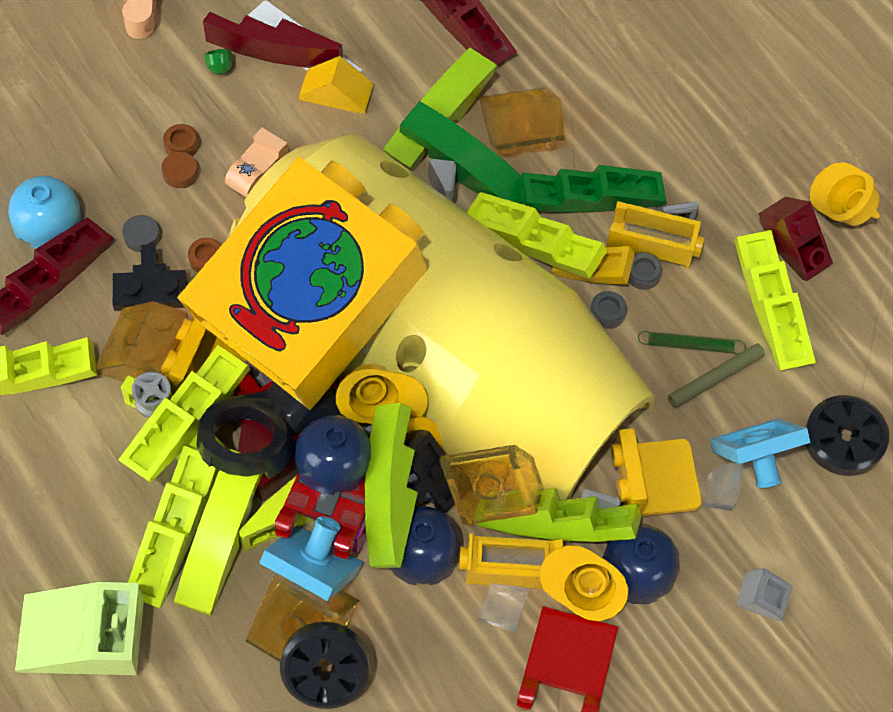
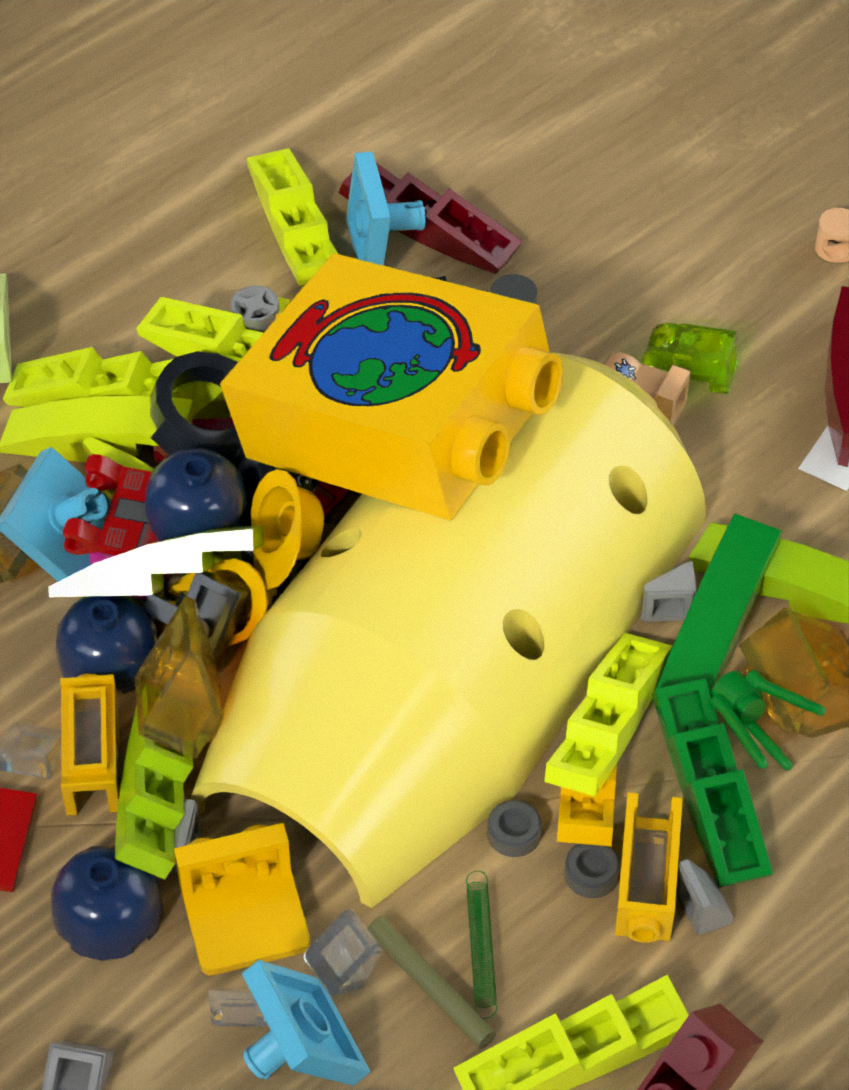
camera: 85 degrees right, 10 degrees down
(43, 209) = (521, 196): medium azure cylinder -> none
(55, 306) = (370, 215): none -> medium azure tile
(179, 169) = (619, 318): dark orange tile -> none
(181, 139) = (663, 308): dark orange tile -> none
(219, 61) = (800, 327): green hinge -> none
(233, 127) = (699, 349): none -> clear neon green leg
(337, 86) = (799, 464): yellow slope -> none
(540, 159) = (742, 704): none -> green plant
(582, 582) = (59, 816): yellow piece -> none
(700, 418) = (343, 954): none -> clear slope

